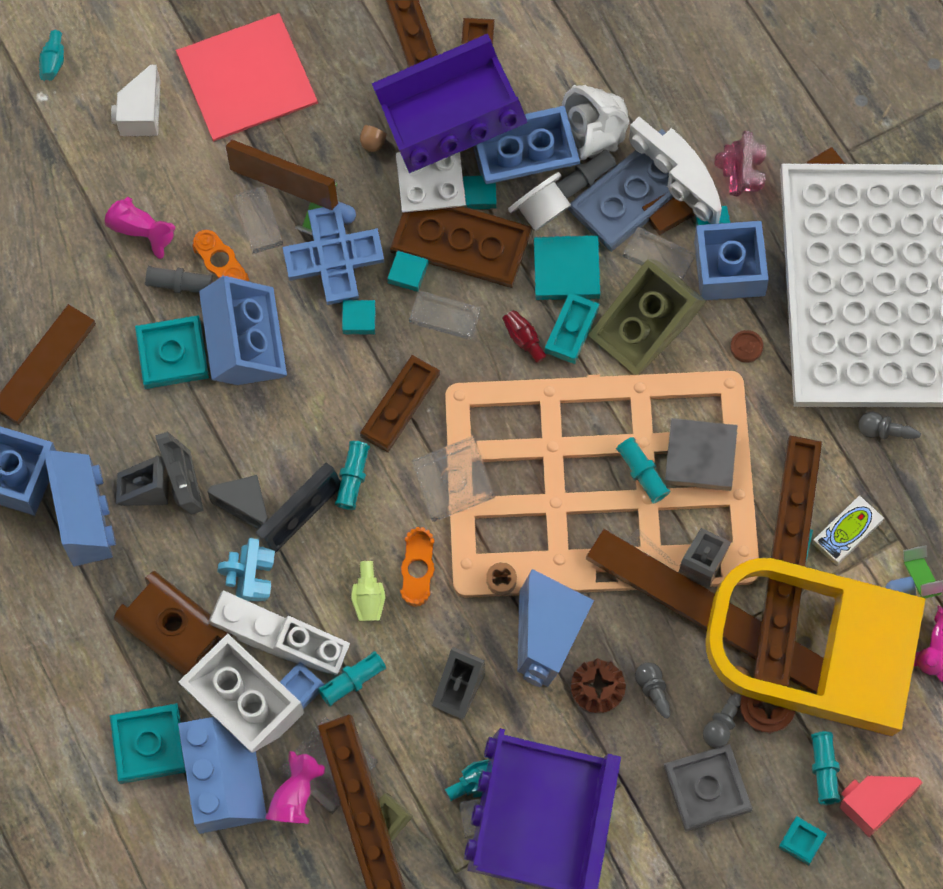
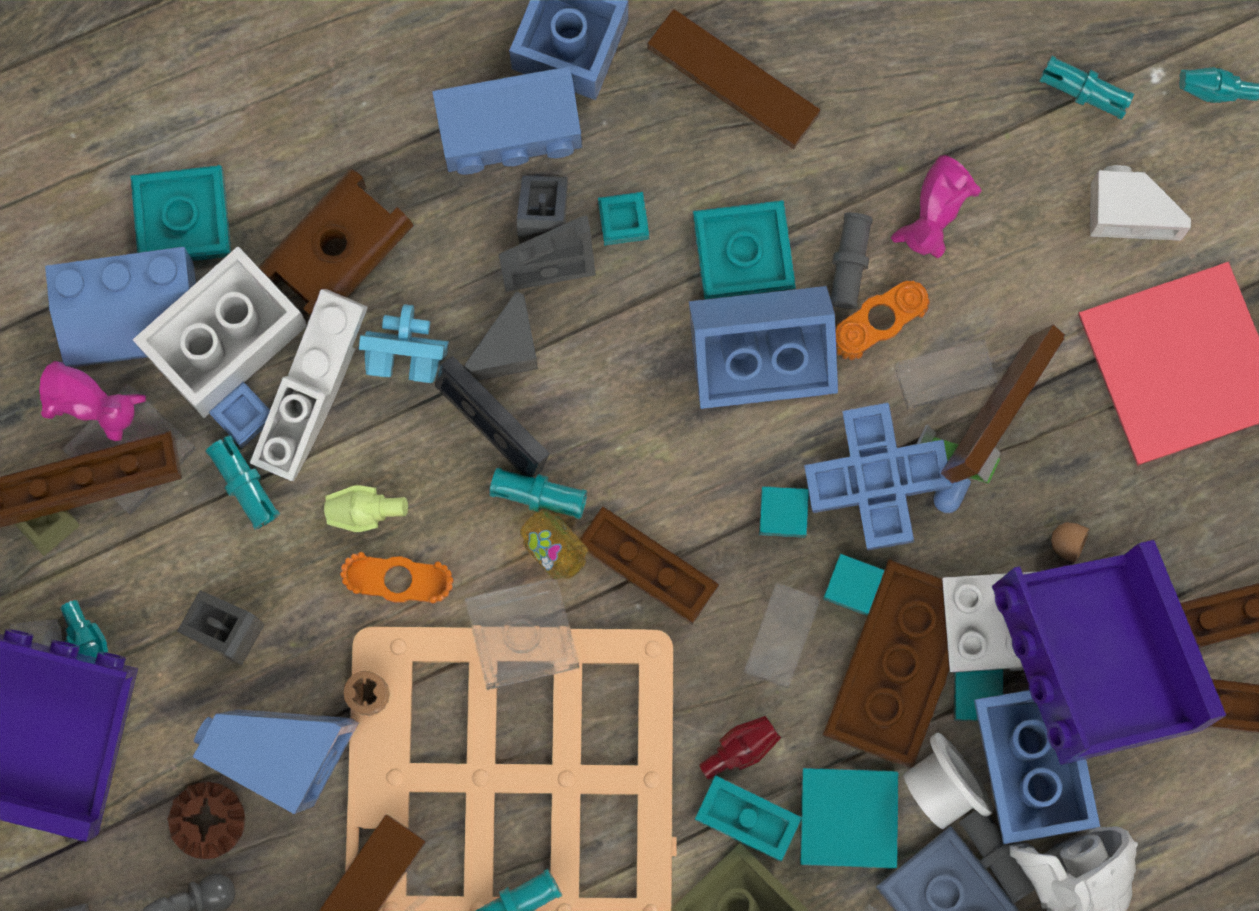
camera: 90 degrees right, 10 degrees up
(52, 136) = (1086, 87): none -> teal pin
(145, 430) = (623, 218): none -> teal tile
(390, 460) = (553, 545): none -> clear yellow brick

